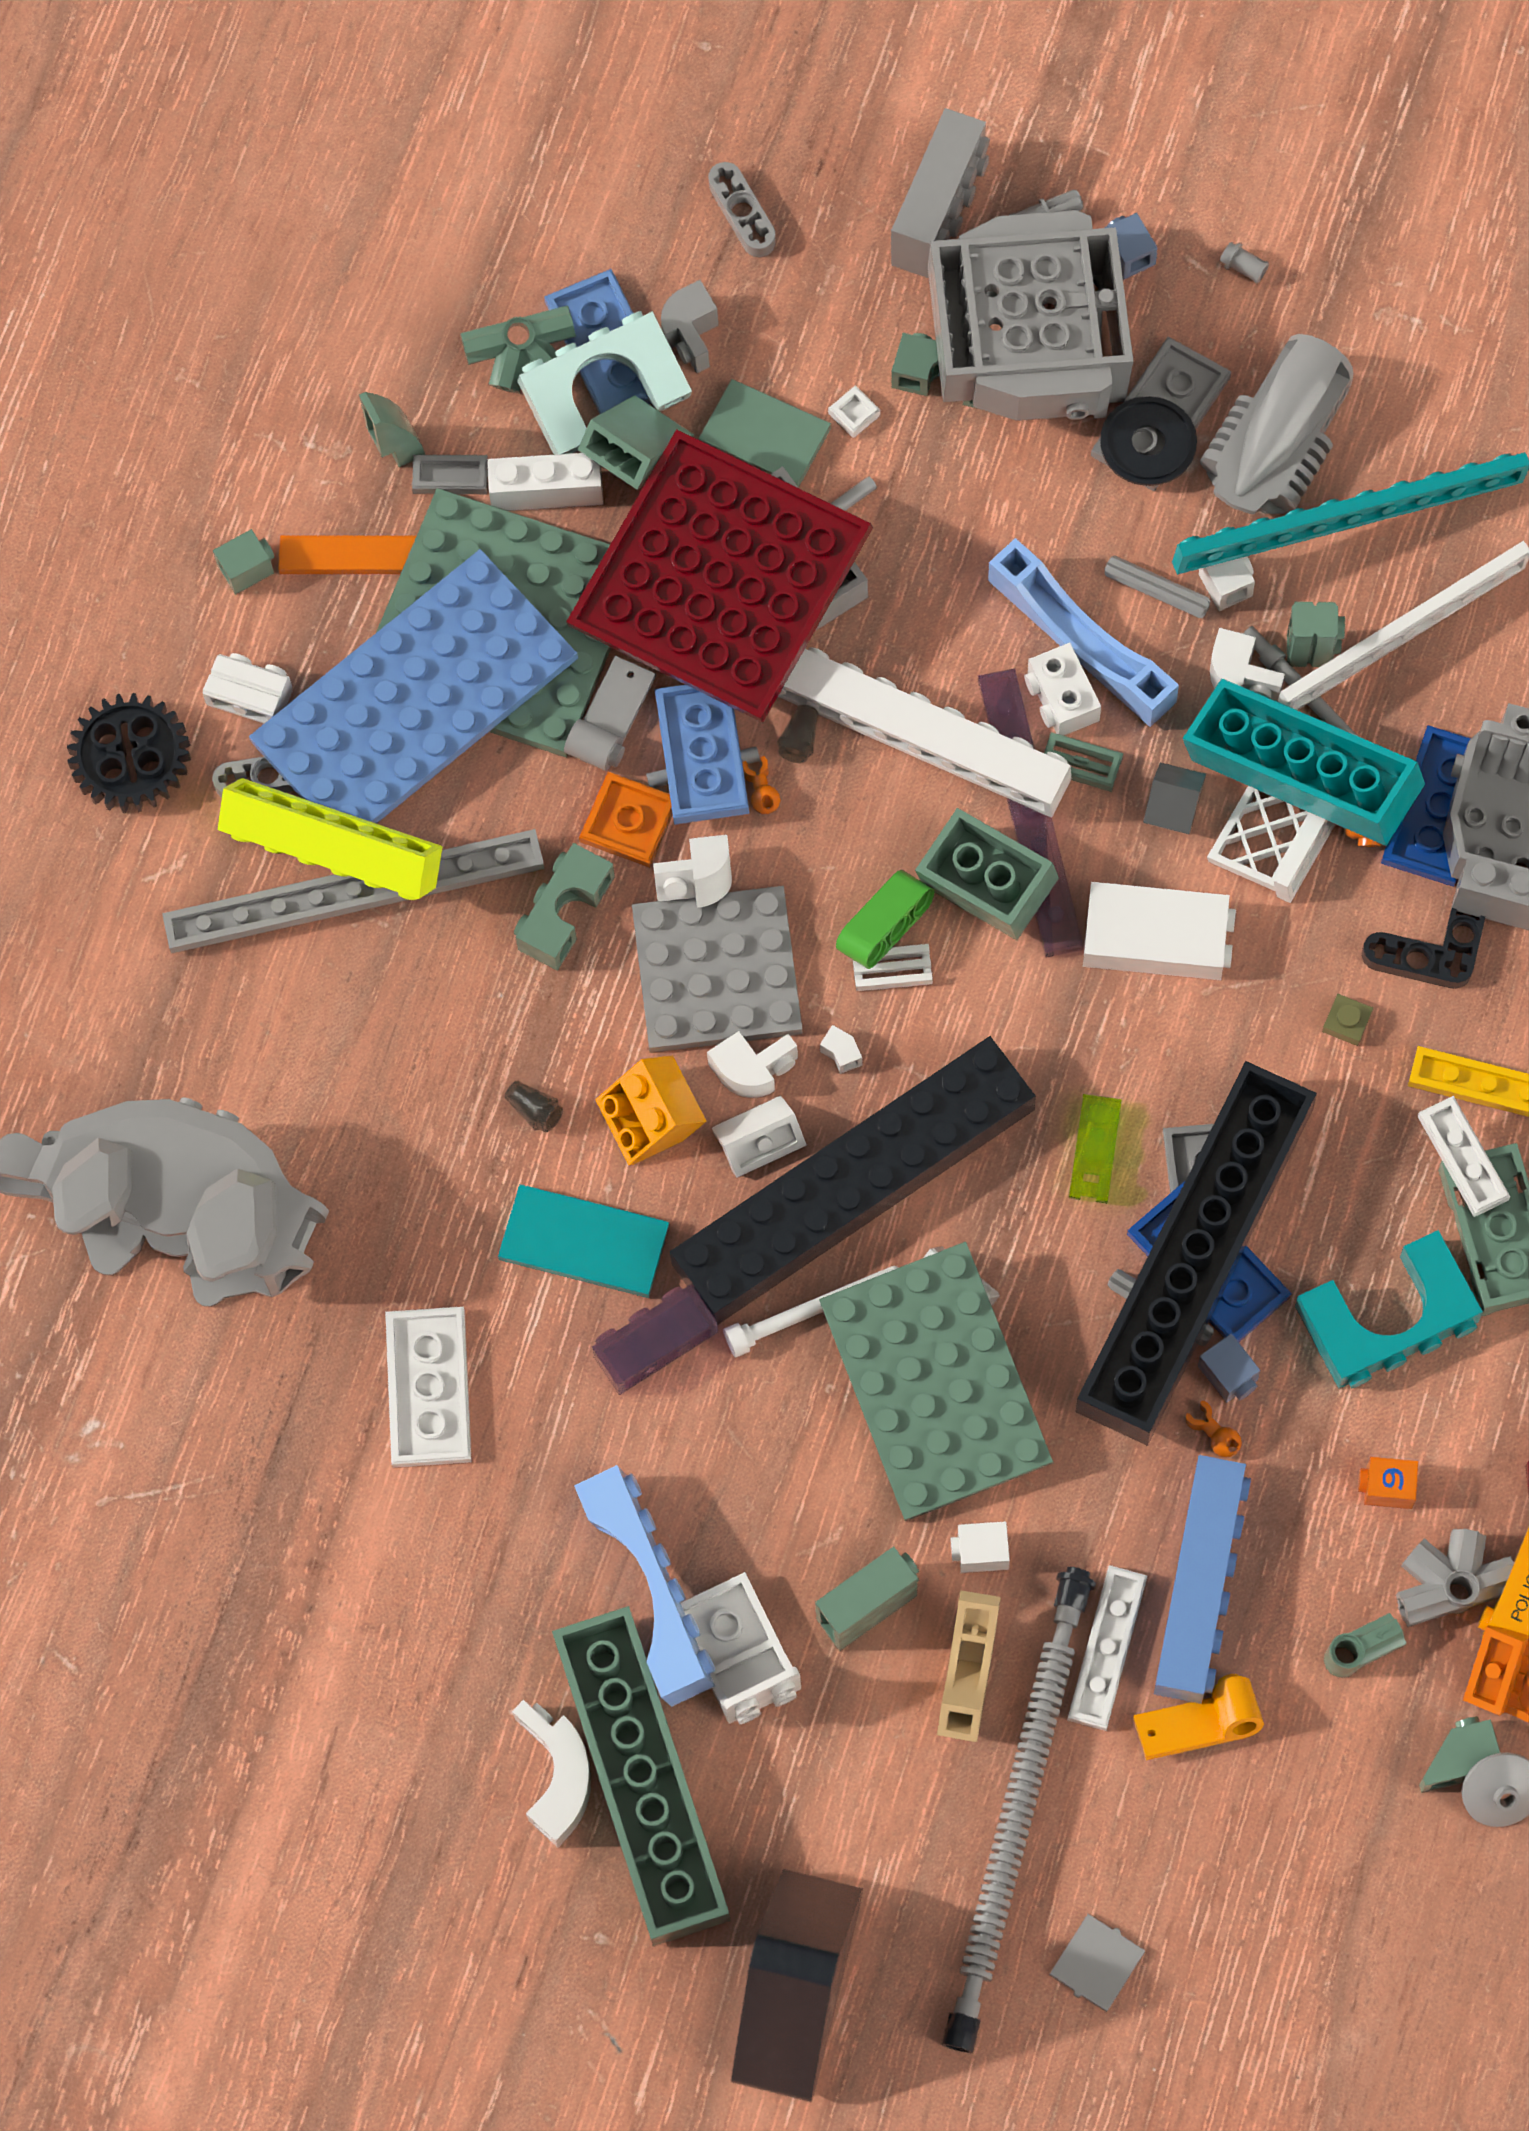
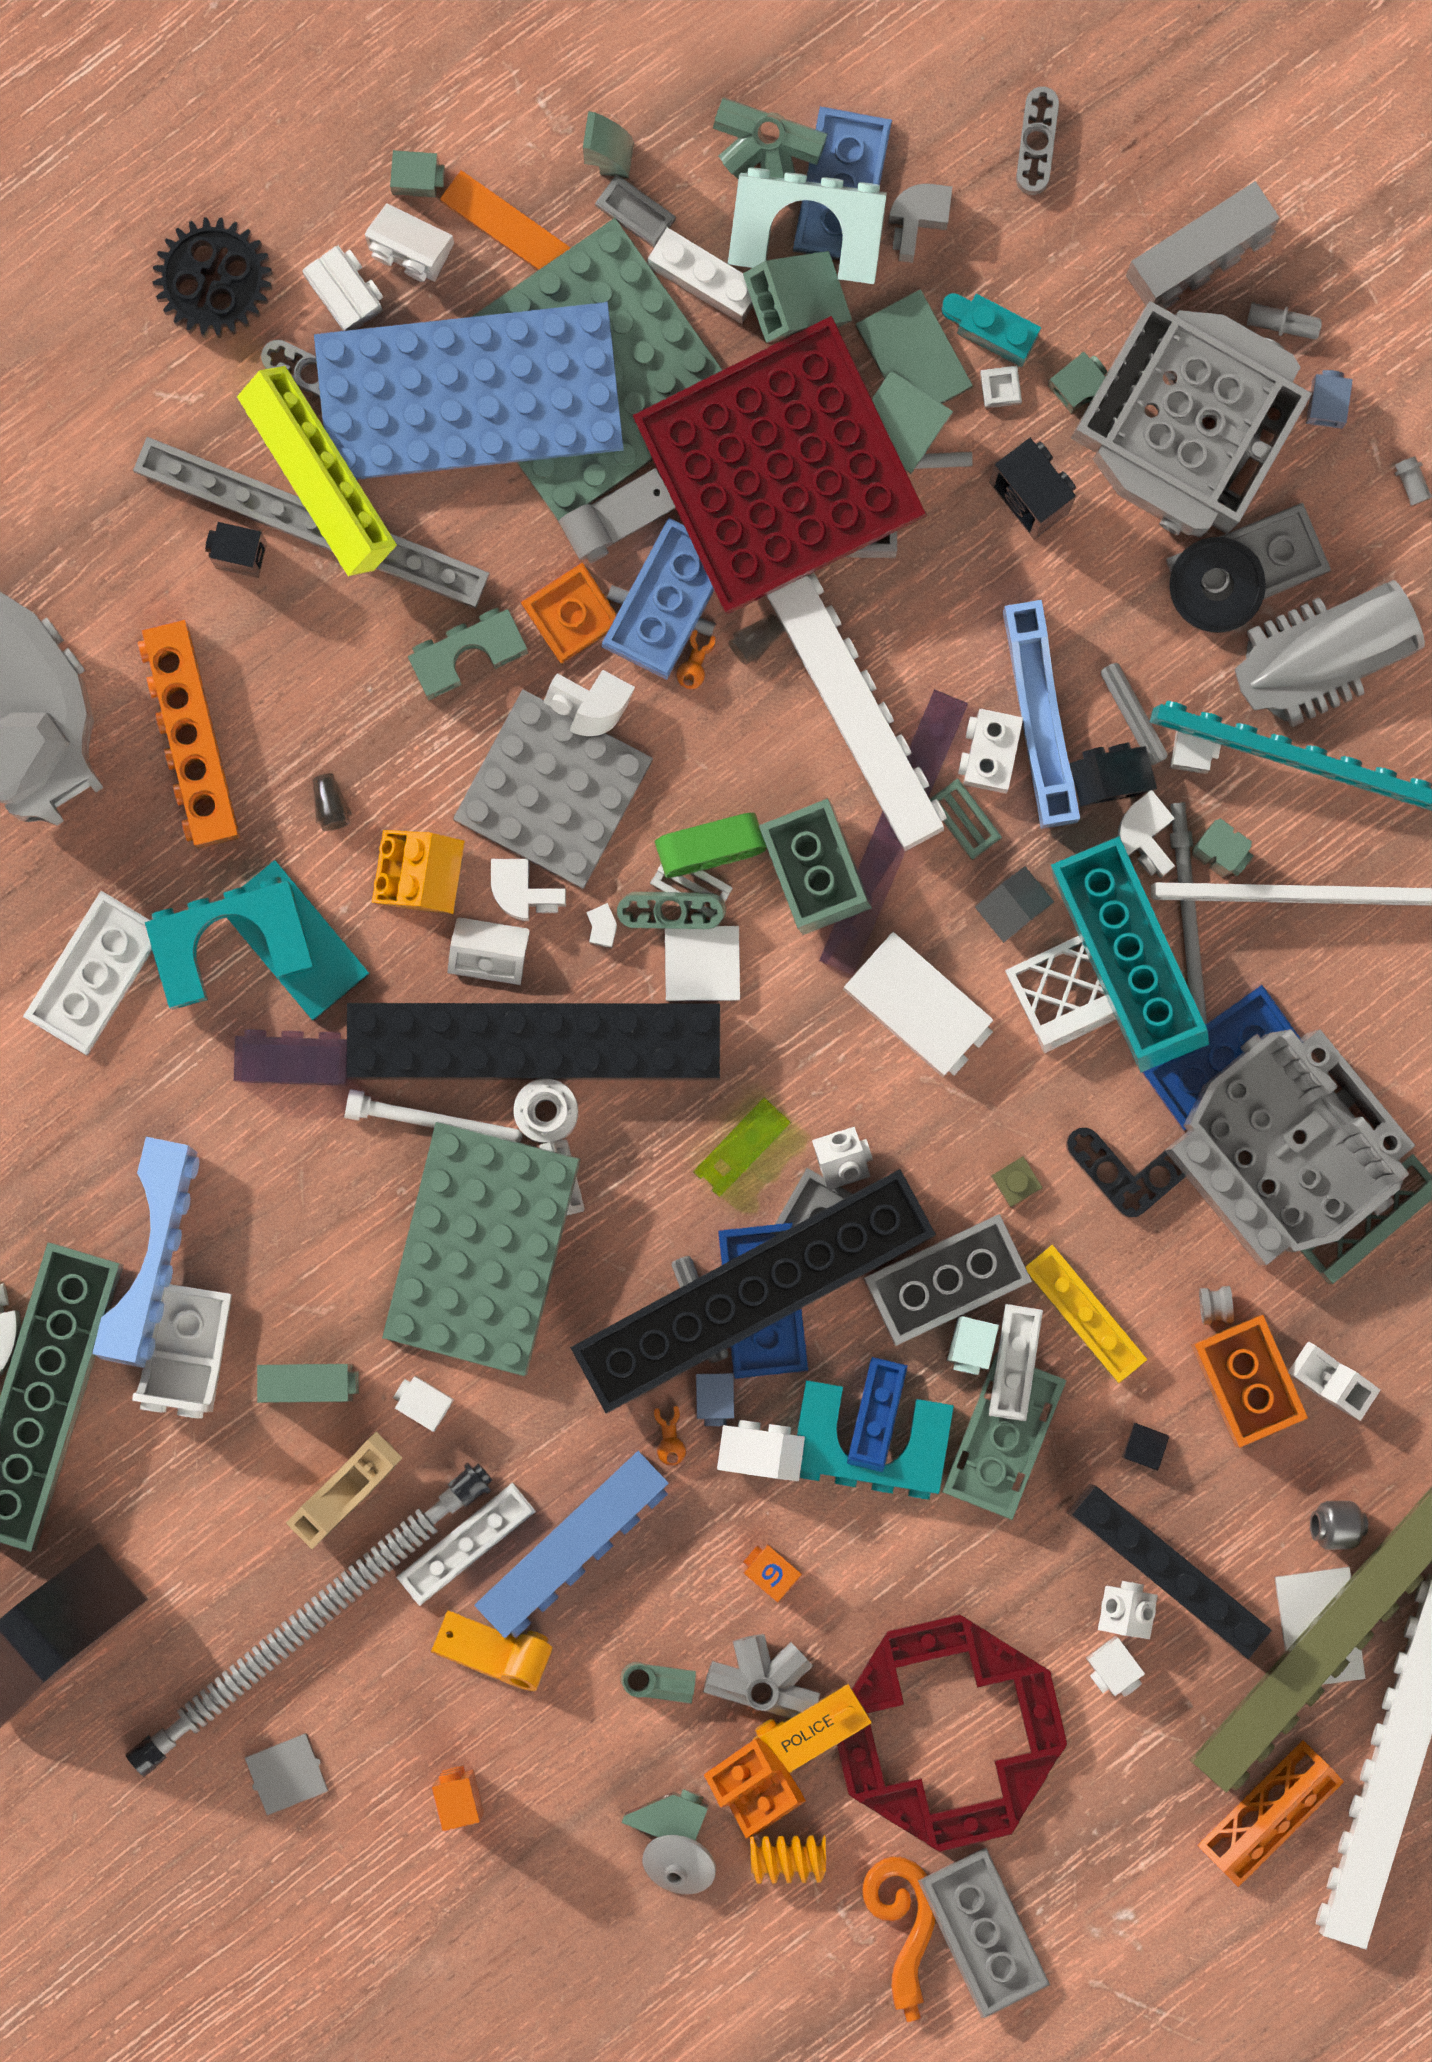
camera: 30 degrees right, 15 degrees up
(278, 617) = (408, 242): none -> white slope
(305, 948) = (236, 549): none -> black brick
(305, 1062) = (177, 641): none -> orange brick
(546, 1223) = (177, 935): none -> teal arch
(800, 463) = (909, 417): none -> sand green tile
(812, 366) = (992, 326): none -> teal brick
(899, 1211) = (540, 1091): none -> white piece
(920, 986) = (698, 919): none -> sand green beam
(942, 456) = (1033, 487): none -> black brick
(947, 1021) = (702, 964): none -> white tile
(1178, 637) = (1113, 774): none -> black brick
(1187, 1095) = (842, 1157): none -> white brick
(1267, 1860) = (457, 1798): none -> orange brick
(1305, 1382) = (761, 1452): none -> white brick
(1352, 1133) = (947, 1280): none -> light grey brick
(1379, 1285) = (877, 1414): none -> blue tile
(1416, 1163) = (972, 1345): none -> light aqua brick

